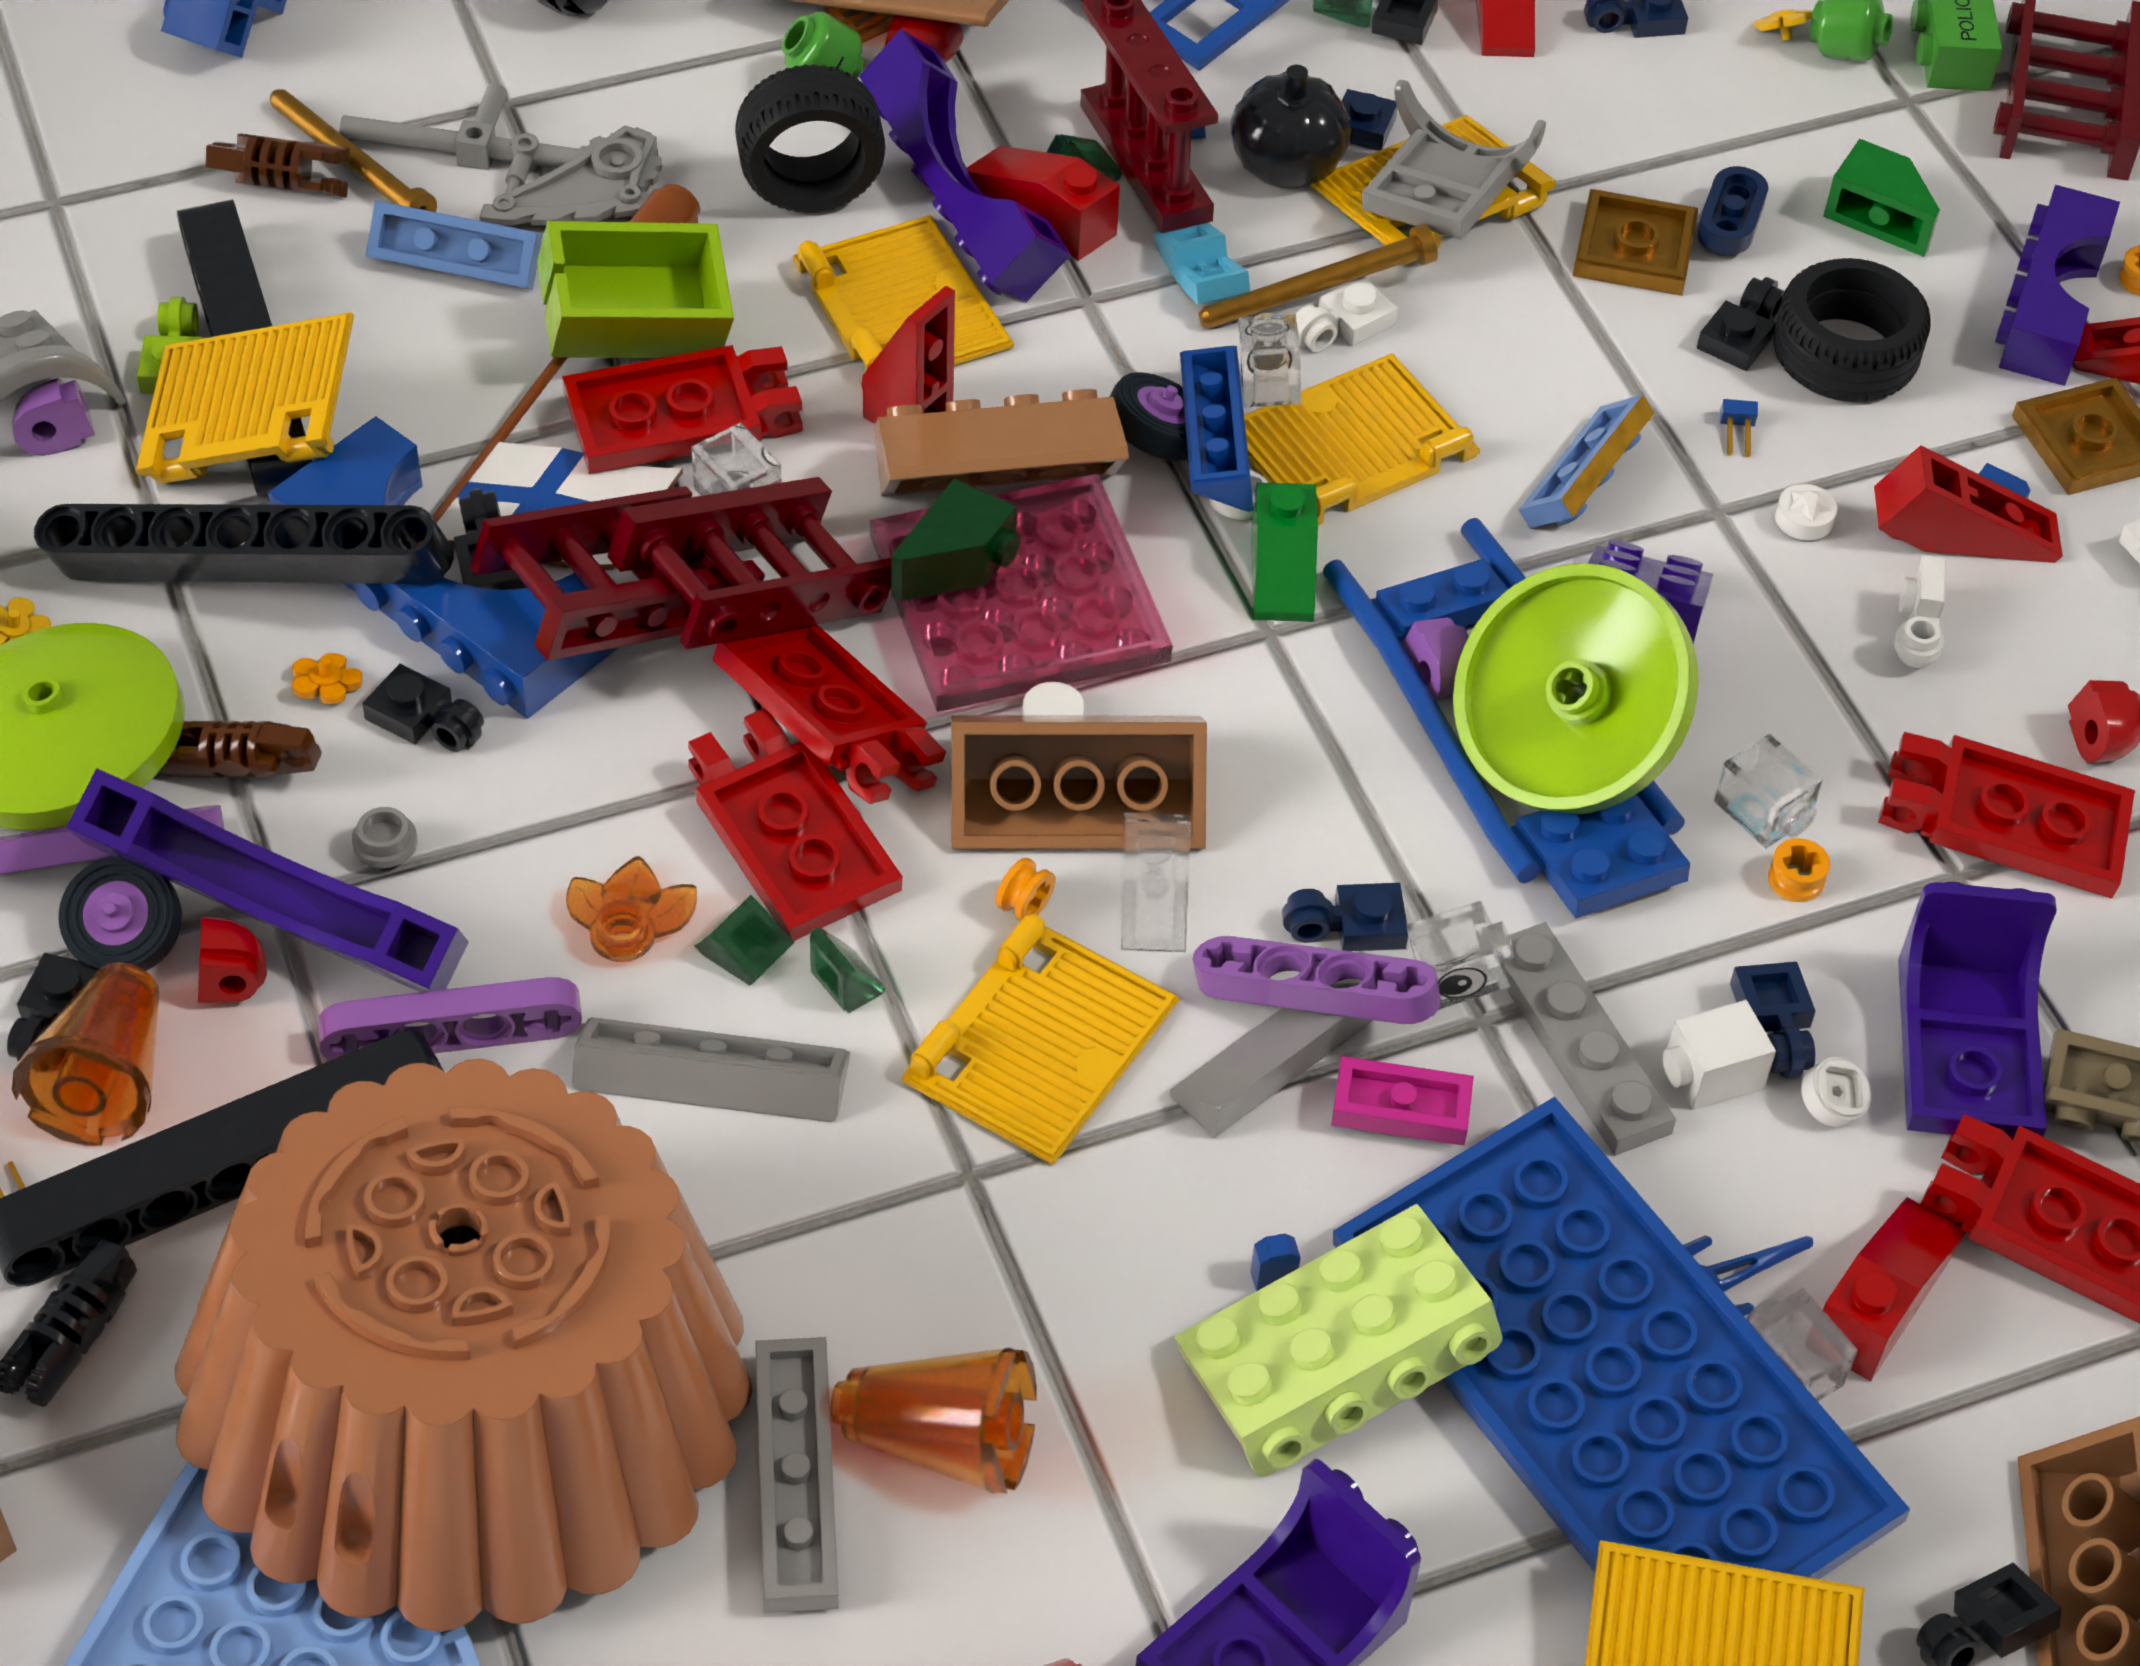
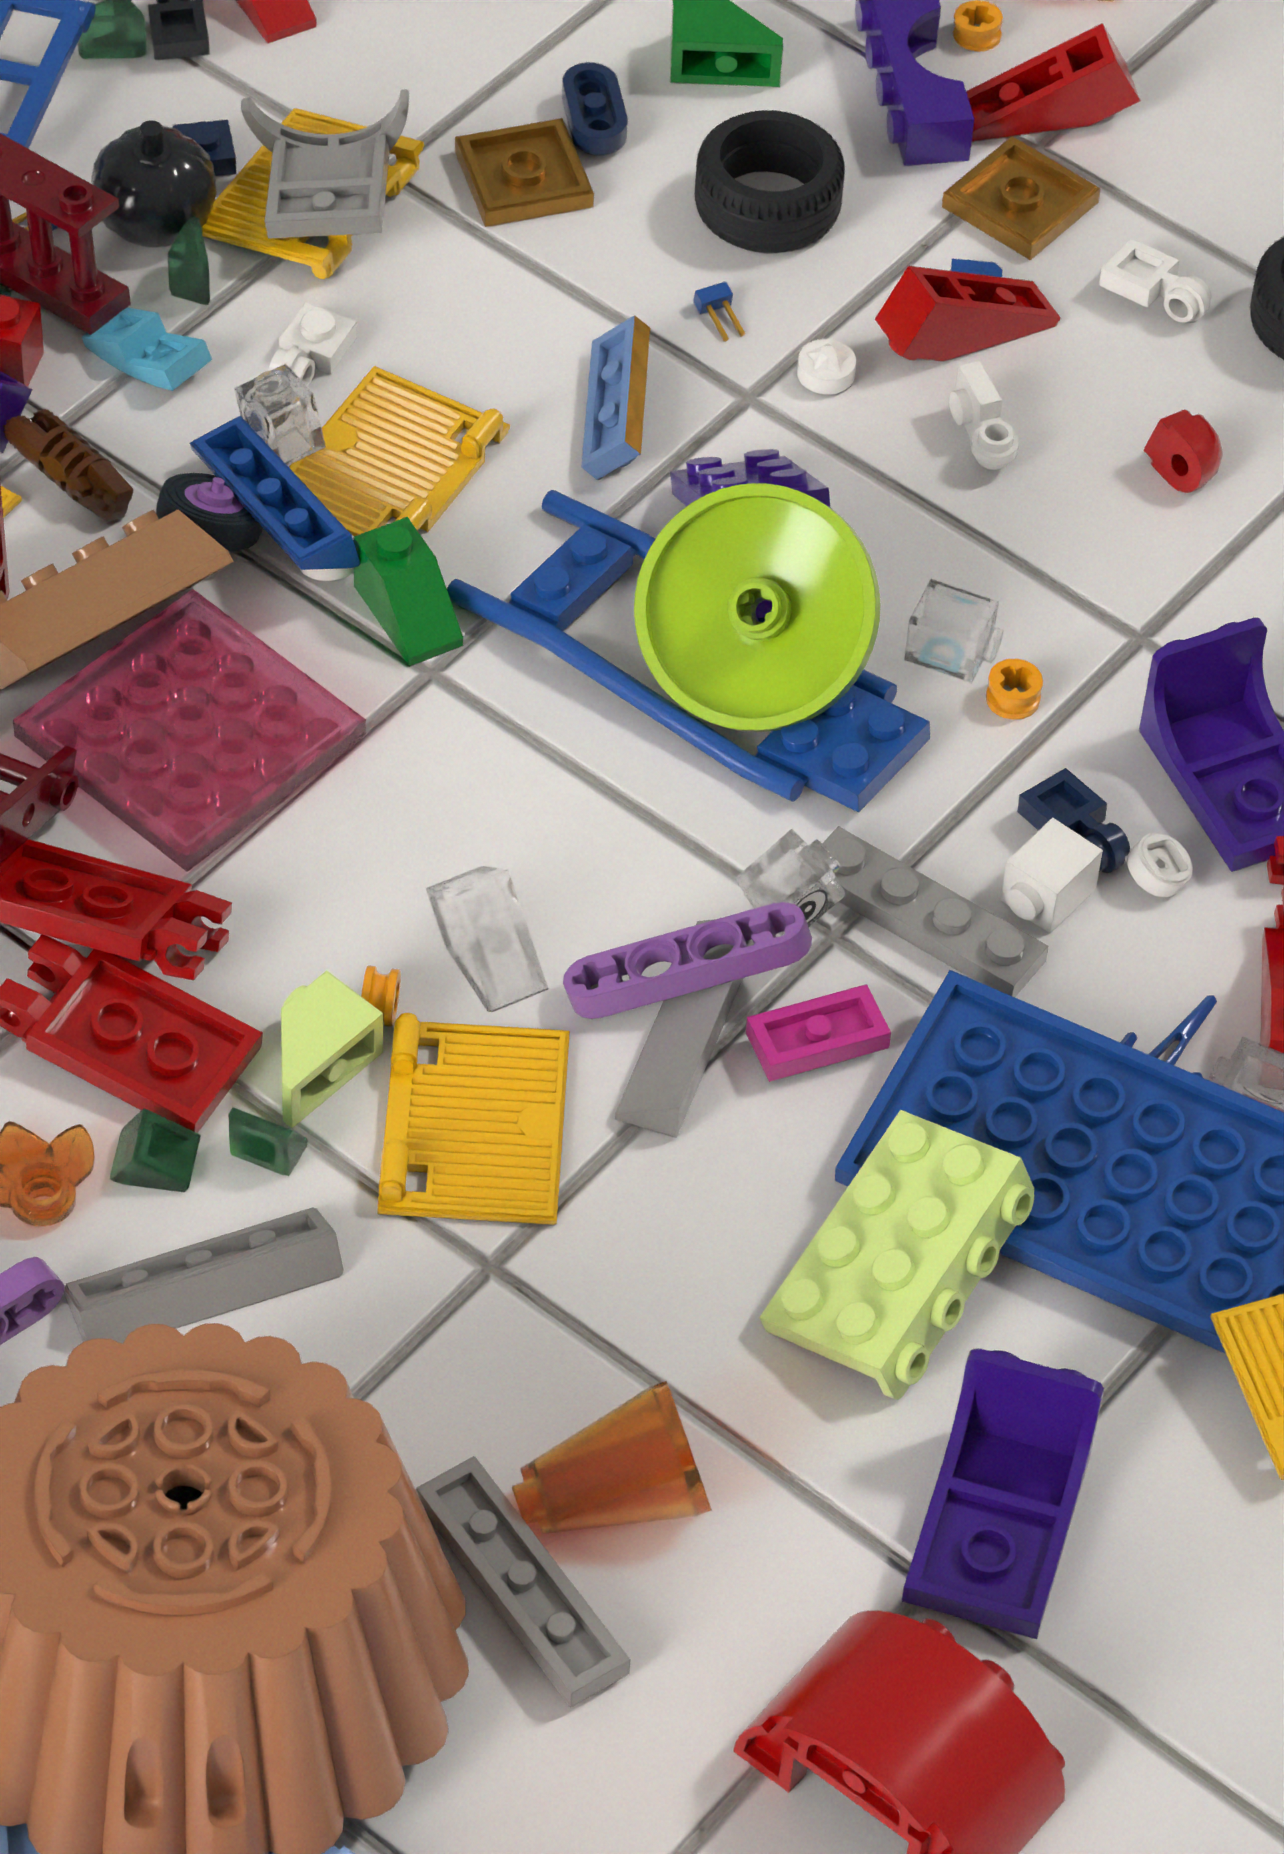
camera: 30 degrees left, 0 degrees up
(941, 910) = (324, 1043): none -> yellowish green slope
(955, 544) = (121, 706): dark green slope -> none
(1053, 699) = (292, 826): white tile -> none
(1068, 329) = (70, 463): none -> reddish brown hinge
(1072, 778) = (353, 877): medium nougat slope -> none
(1273, 1259) = (802, 1217): blue piece -> none
(1282, 205) = (189, 265): none -> clear green slope
(1364, 914) = (679, 887): dark blue plate -> none
(1418, 246) = (344, 253): pearl gold bar -> none
(1435, 651) = (604, 627): medium lavender piece -> none
(1743, 331) = (667, 217): black plate -> none
(2011, 810) = (1153, 562): red tile -> none

